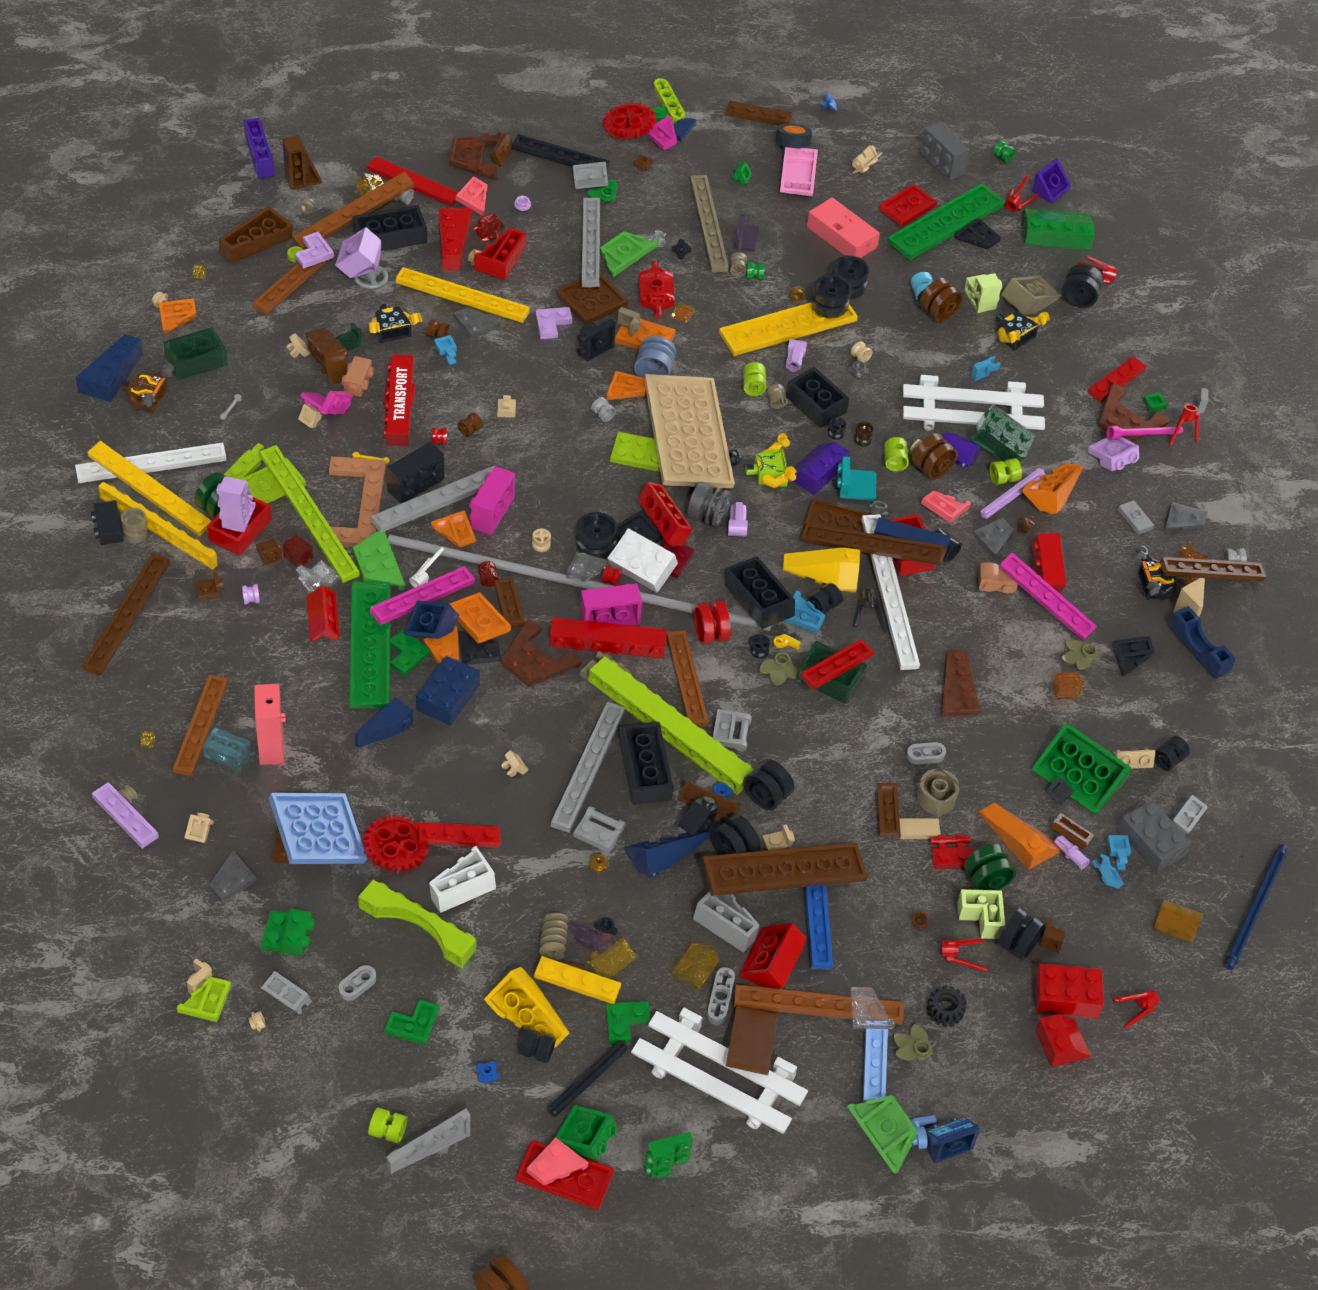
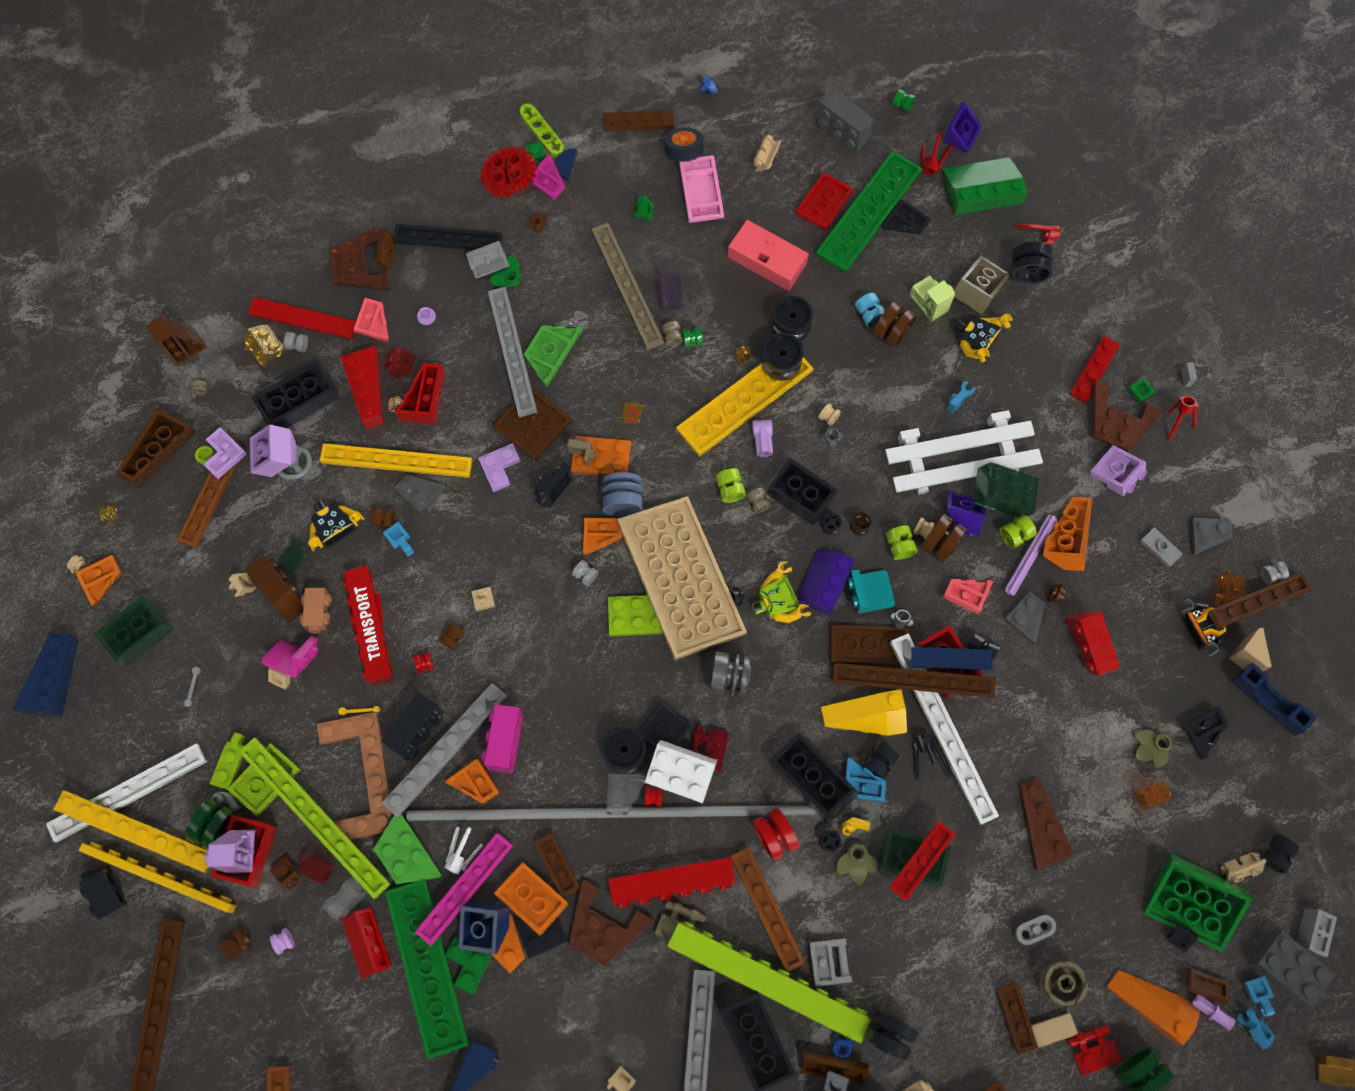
camera: 10 degrees left, 20 degrees up
(134, 525) = (132, 889): dark tan wheel -> none
(148, 390) = (95, 696): torso -> none
(258, 148) = (125, 326): dark purple brick -> none
(362, 205) = (252, 381): dark orange plate -> none
(448, 690) = (525, 1008): dark blue brick -> none
(487, 572) = (524, 834): clear red wheel -> none
(541, 540) = (565, 766): tan wheel -> none
(612, 605) = (665, 845): dark pink brick -> none
(656, 297) = (599, 403): red plate -> none
(665, 514) = (688, 702): red brick -> none
(681, 244) = (607, 325): black plate -> none
(737, 523) = (764, 685): lavender piece -> none
(994, 579) = (1046, 674): nougat brick -> none
(1047, 596) = (1105, 689): dark pink plate -> none
(1116, 432) = (1116, 449): dark pink piece -> none

